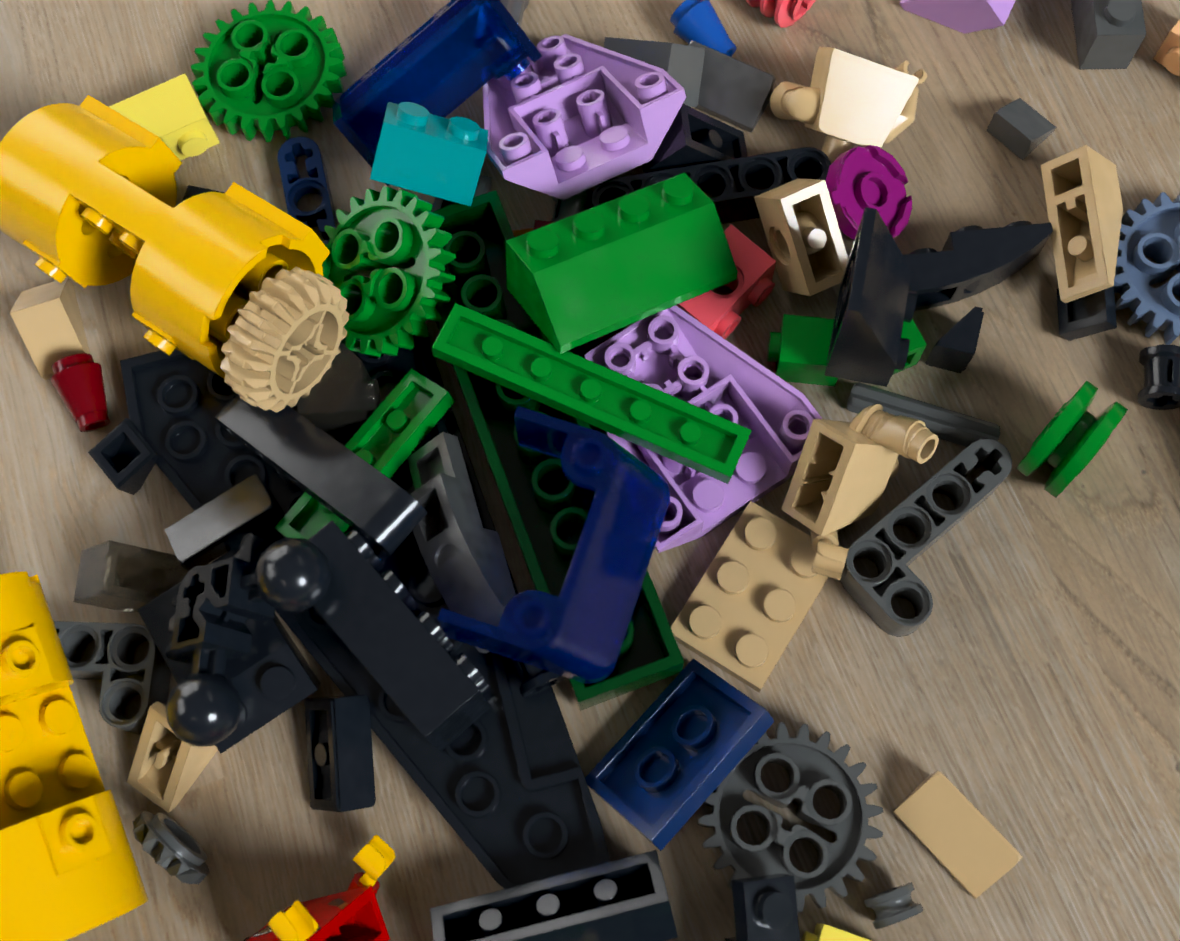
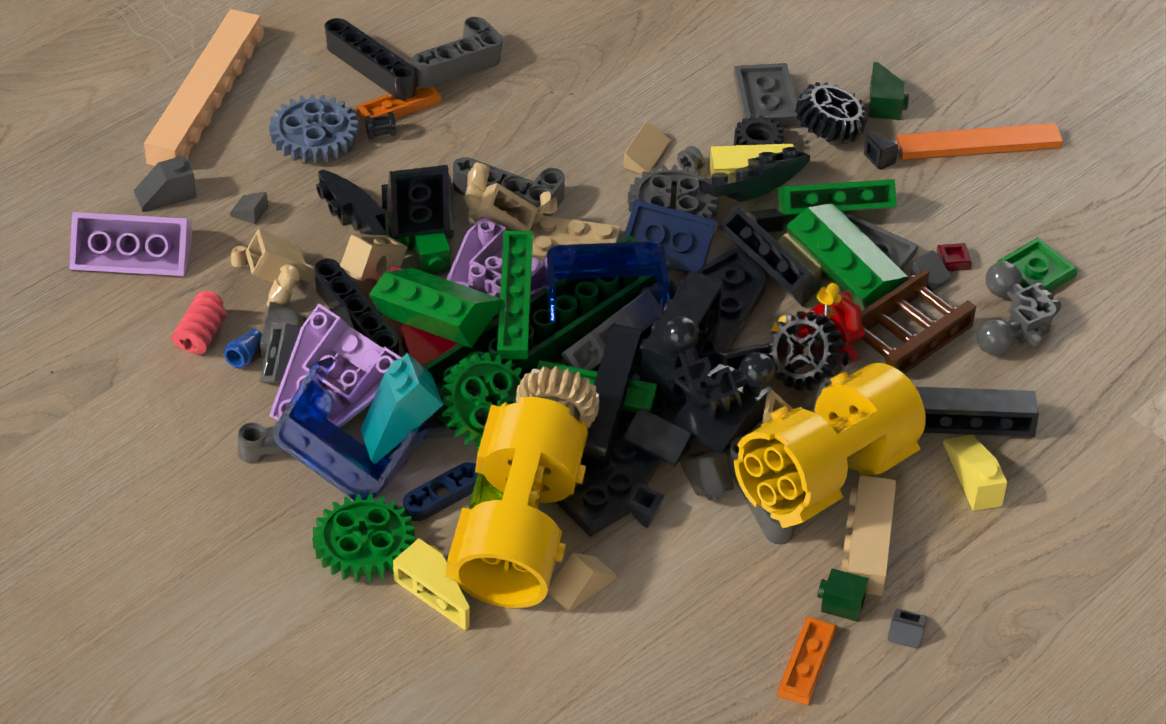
camera: 120 degrees left, 25 degrees down
(82, 390) = (615, 544): dark red cone -> none
(274, 857) = (823, 336): none -> black gear
(869, 180) = (325, 247): magenta tile -> none
(1071, 439) = (438, 138): green wheel -> none
(1085, 220) = (313, 159): tan slope -> none
(1087, 314) = (355, 158): black plate -> none

